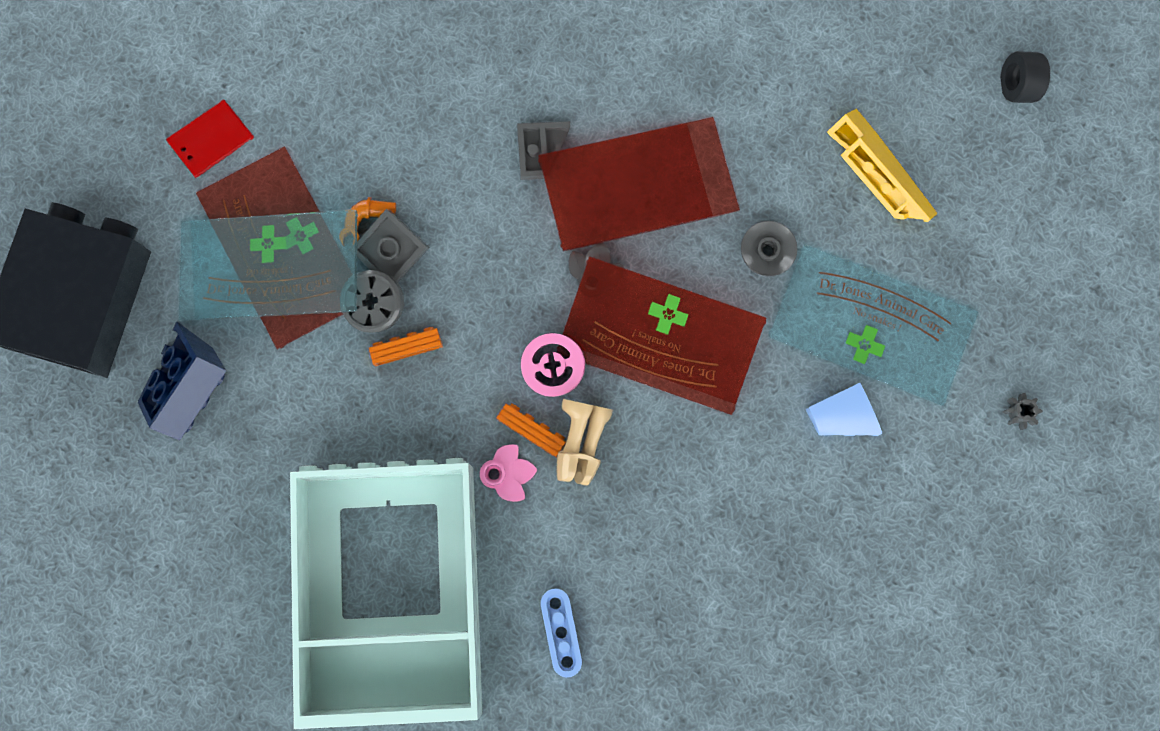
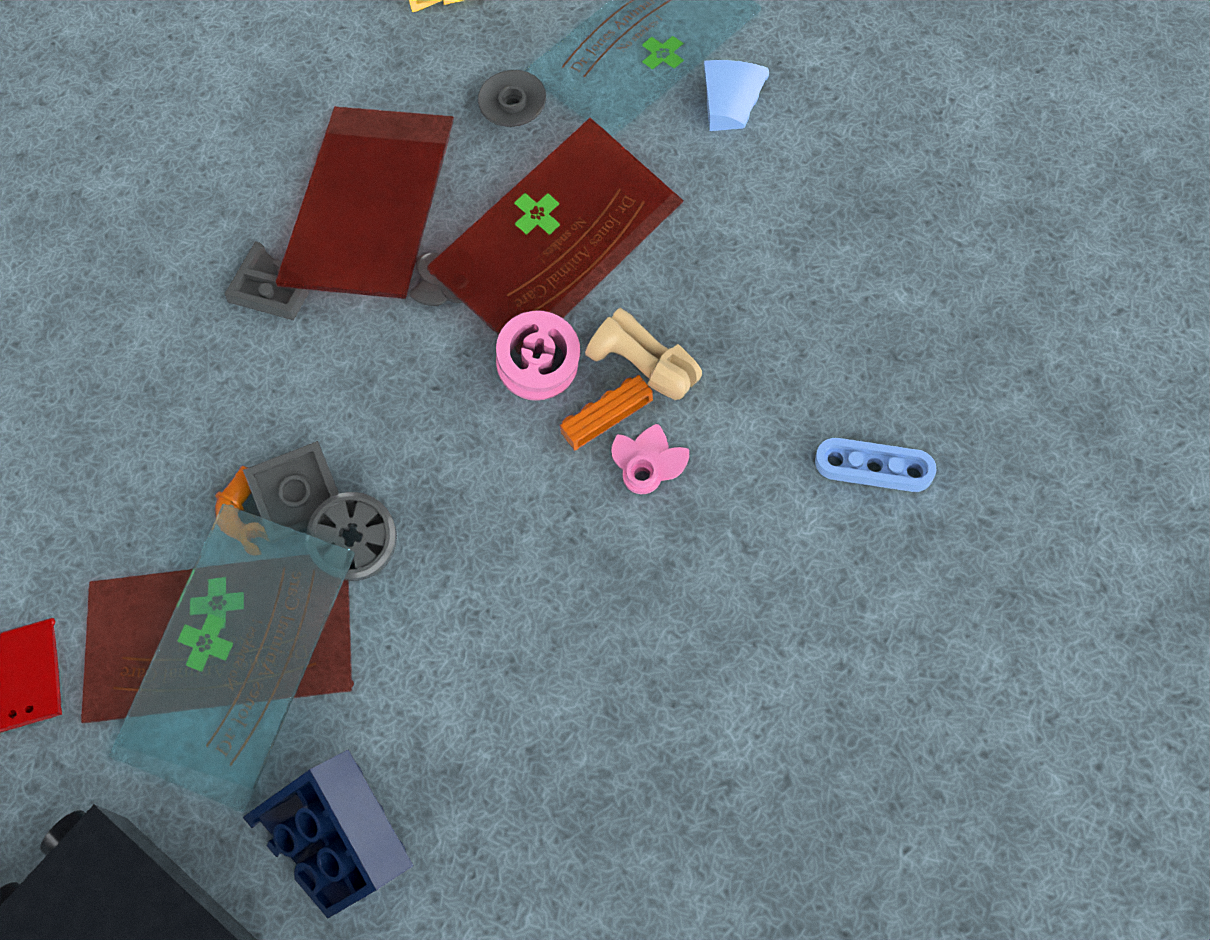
camera: 65 degrees left, 15 degrees down
(383, 665) = (849, 677): light aqua panel -> none
(405, 347) = (431, 522): orange piece -> none

